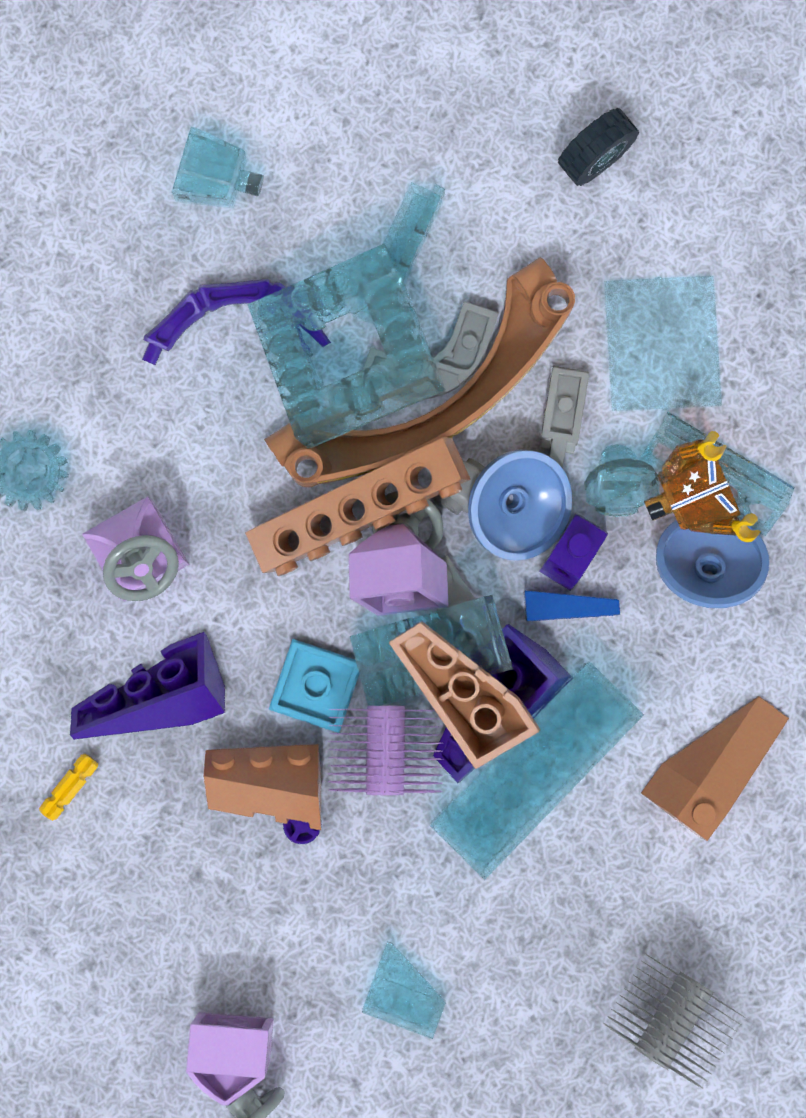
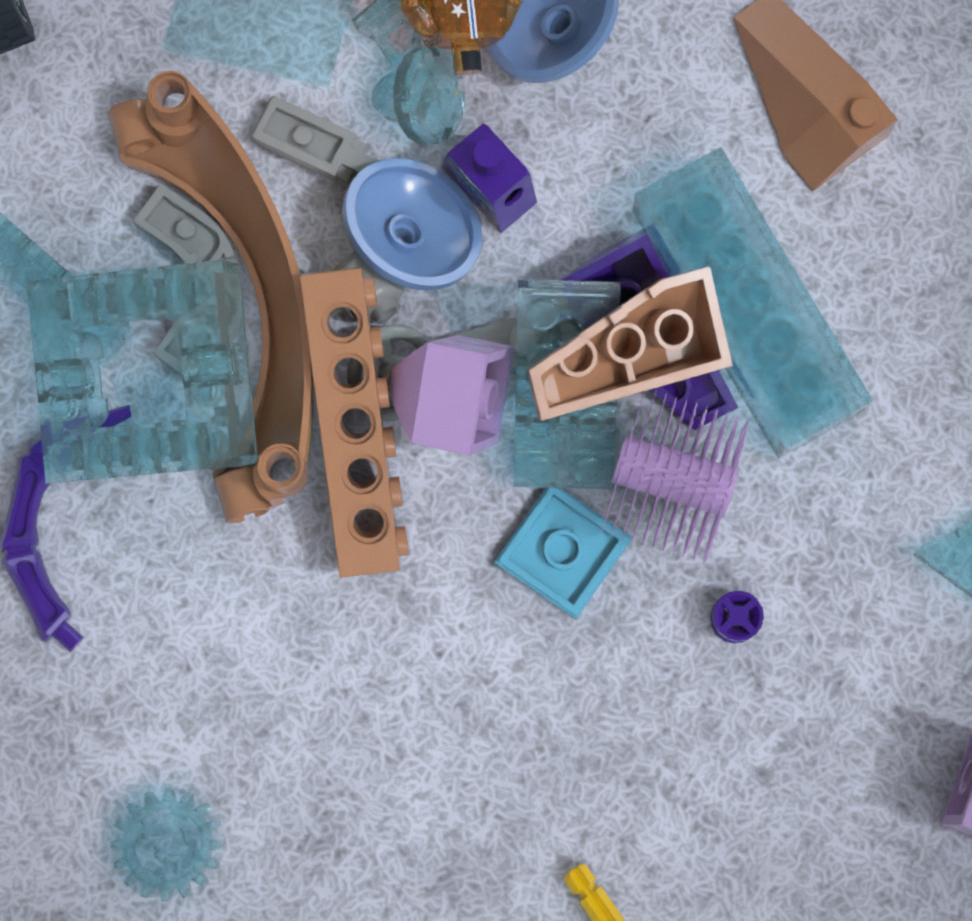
camera: 70 degrees left, 5 degrees down
(136, 552) = (322, 725): piece -> none
(168, 695) = (519, 743): dark purple wedge -> none
(266, 781) = (669, 642): nougat wedge -> none
(554, 606) = (551, 223): blue piece -> none

